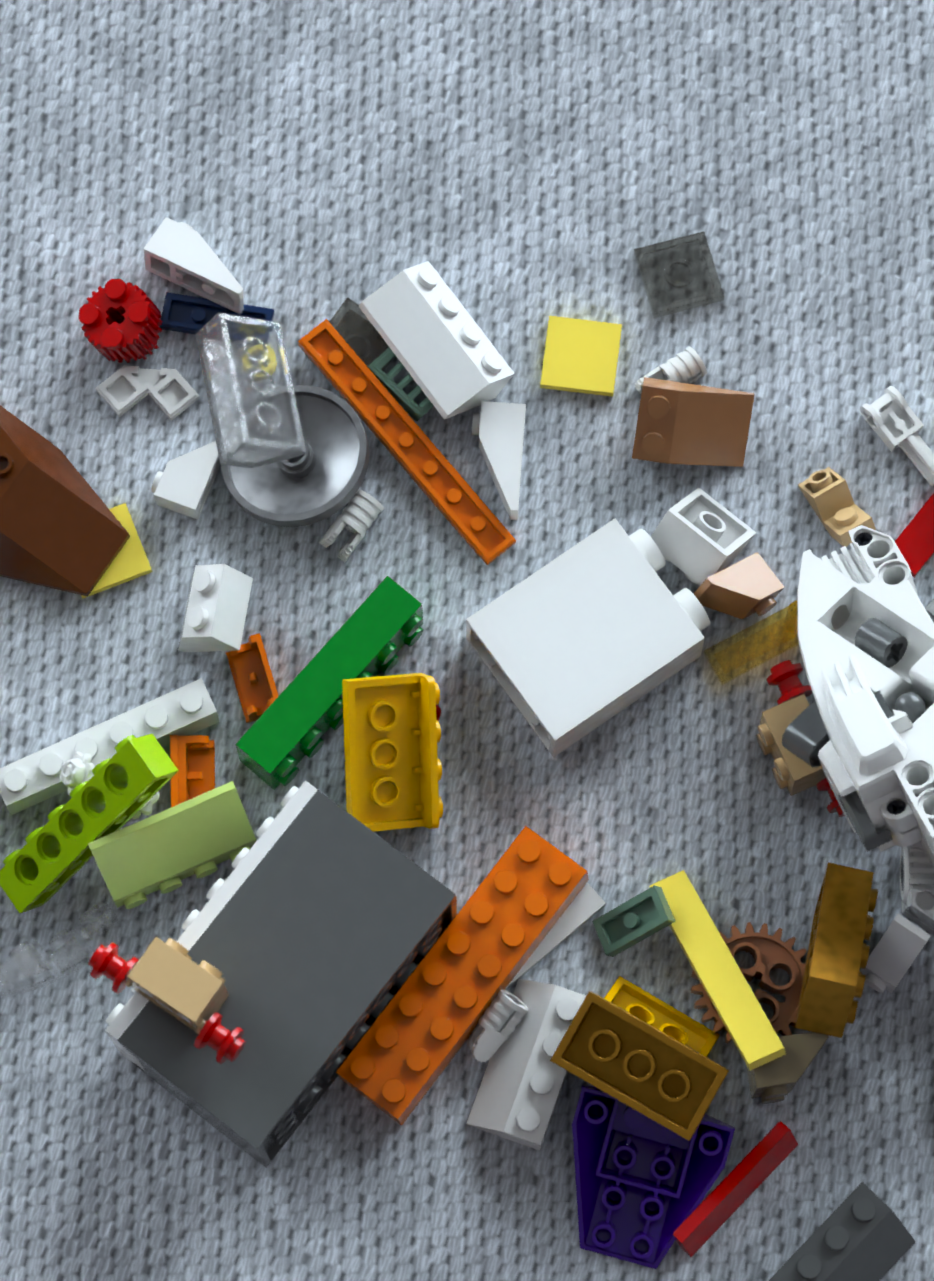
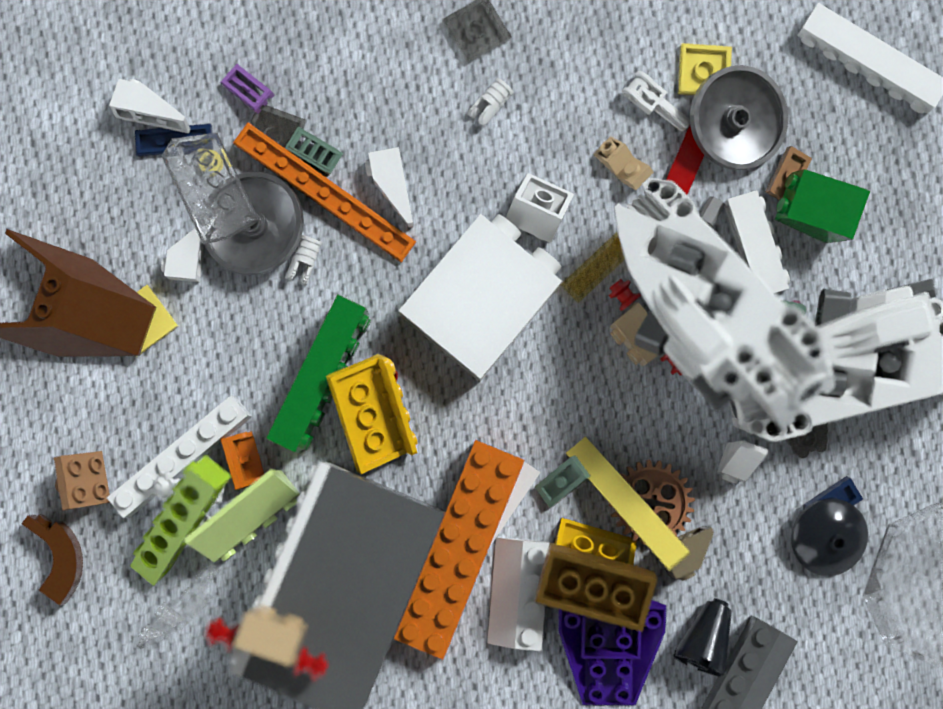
camera: 20 degrees left, 10 degrees up
(121, 321) = (108, 160): red brick -> none
(133, 383) = (129, 200): white tile -> none
(215, 609) = (228, 344): white slope -> none
(252, 678) = (266, 382): orange hinge -> none
(351, 295) = (261, 100): none -> medium lavender tile
(437, 340) = (326, 118): white slope -> none
(496, 1025) = (490, 575): white hinge -> none
(581, 356) = (426, 102): light yellow tile -> none
(692, 424) = (513, 132): medium nougat slope -> none
(735, 1188) = (679, 629): red tile -> none
(741, 588) = (576, 237): slope -> none
(782, 1198) = (707, 639): none -> black cone
(837, 951) = (704, 471): pearl gold brick -> none

